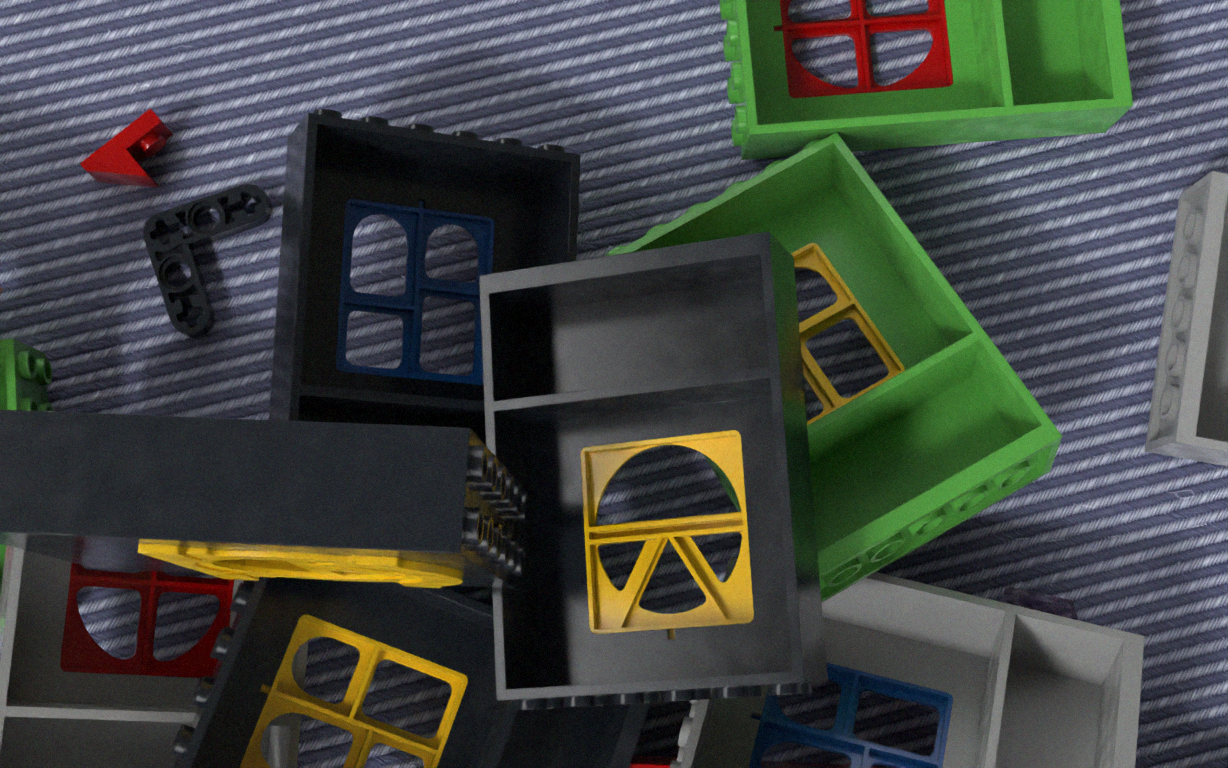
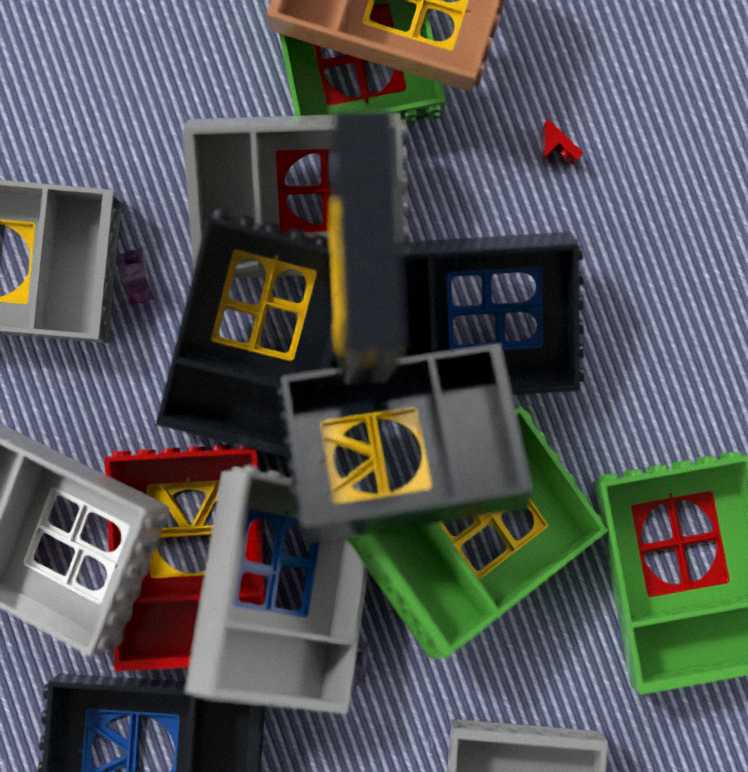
camera: 90 degrees right, 5 degrees up
(181, 249) = (508, 178): black beam -> none

